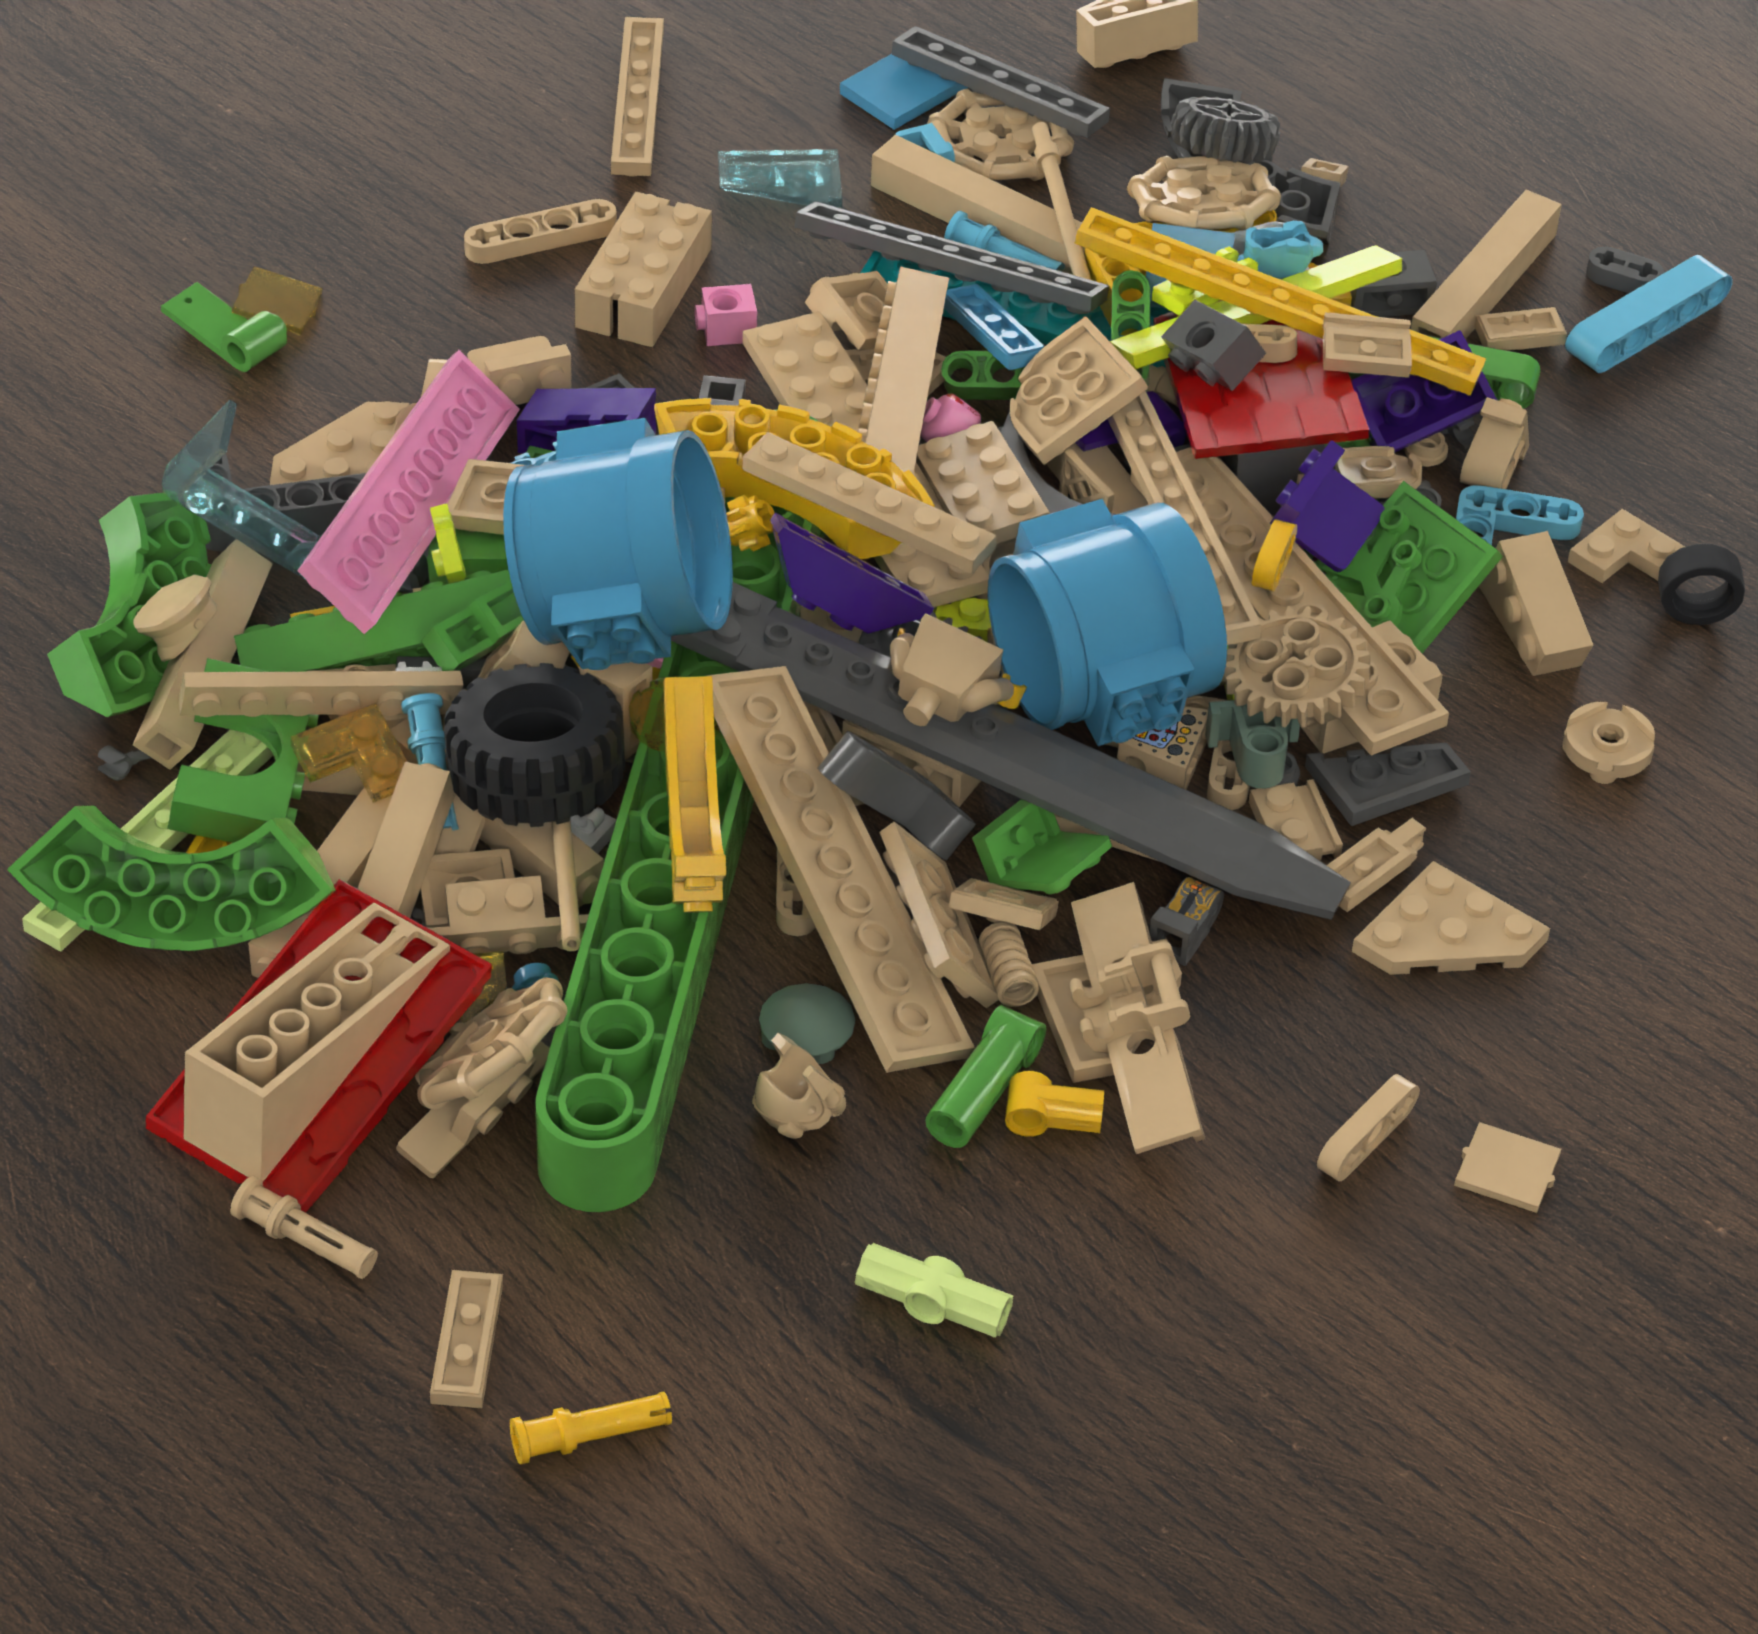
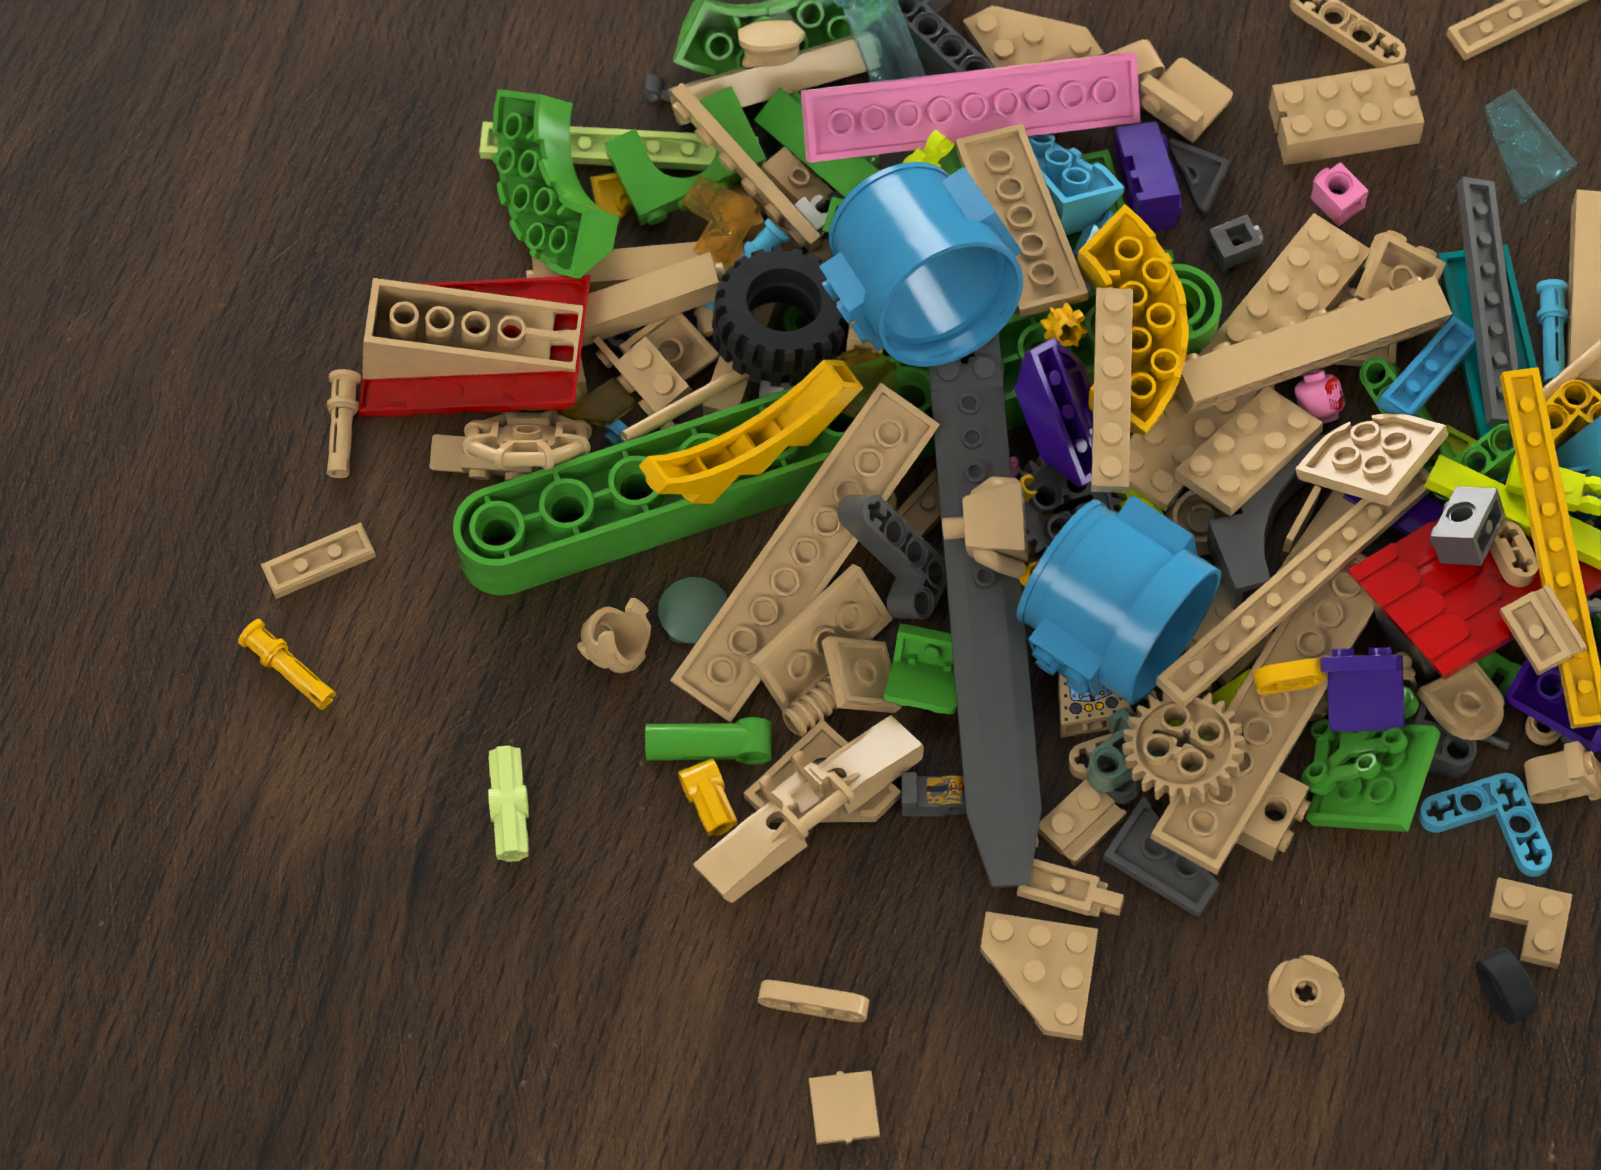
camera: 65 degrees right, 20 degrees up
(1537, 605) = (1402, 880): tan wedge -> none

